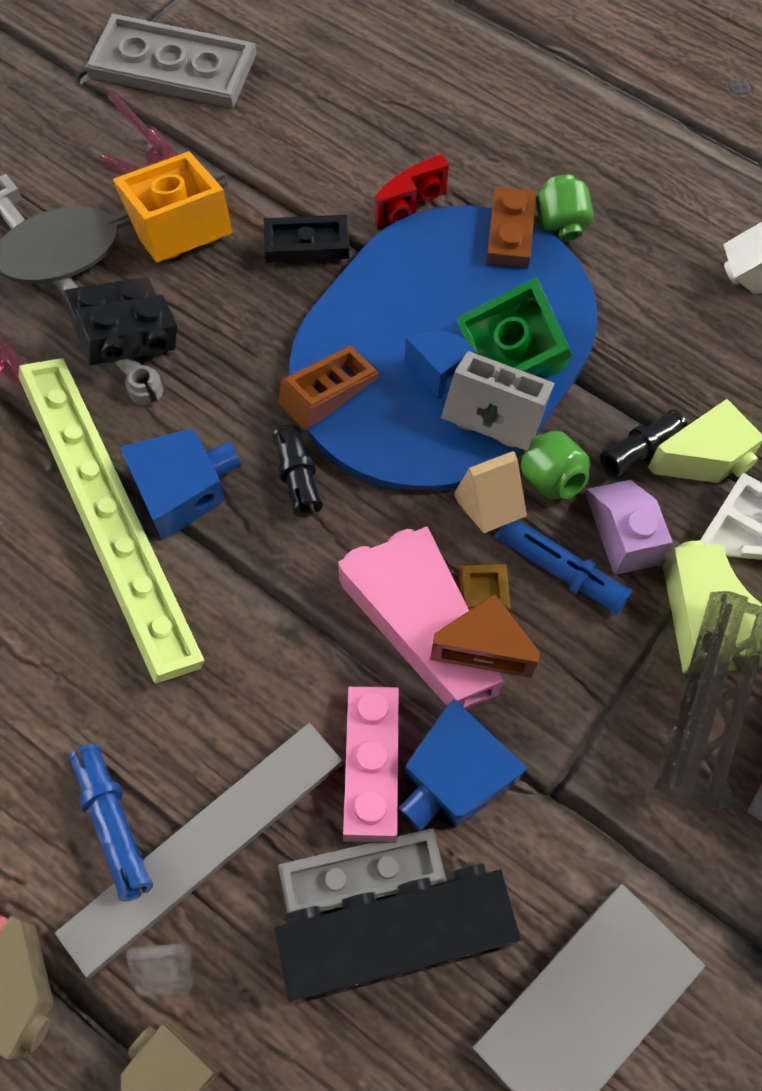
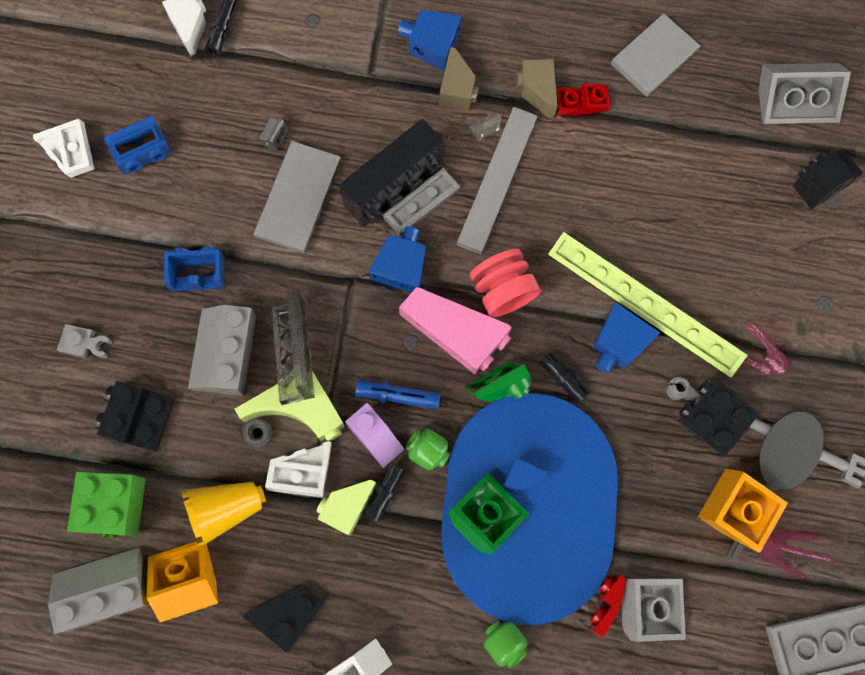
camera: 150 degrees right, 10 degrees up
(102, 802) = (553, 172): blue pin -> none
(306, 238) = (651, 535): black plate -> none
(307, 632) = (505, 281): none -> coral wheel
(309, 406) = (586, 438): dark orange slope -> none
(359, 162) = (653, 610): none -> light grey slope
(371, 765) = (442, 247): bright pink plate -> none
(404, 493) = (502, 382): none -> green slope
(482, 582) = (432, 362): pearl gold tile -> none
(487, 641) = (415, 314): dark orange slope -> none
(493, 492) = (453, 407): tan slope -> none
(497, 400) = (477, 460): light grey brick -> none
(511, 227) = (531, 608): dark orange plate -> none

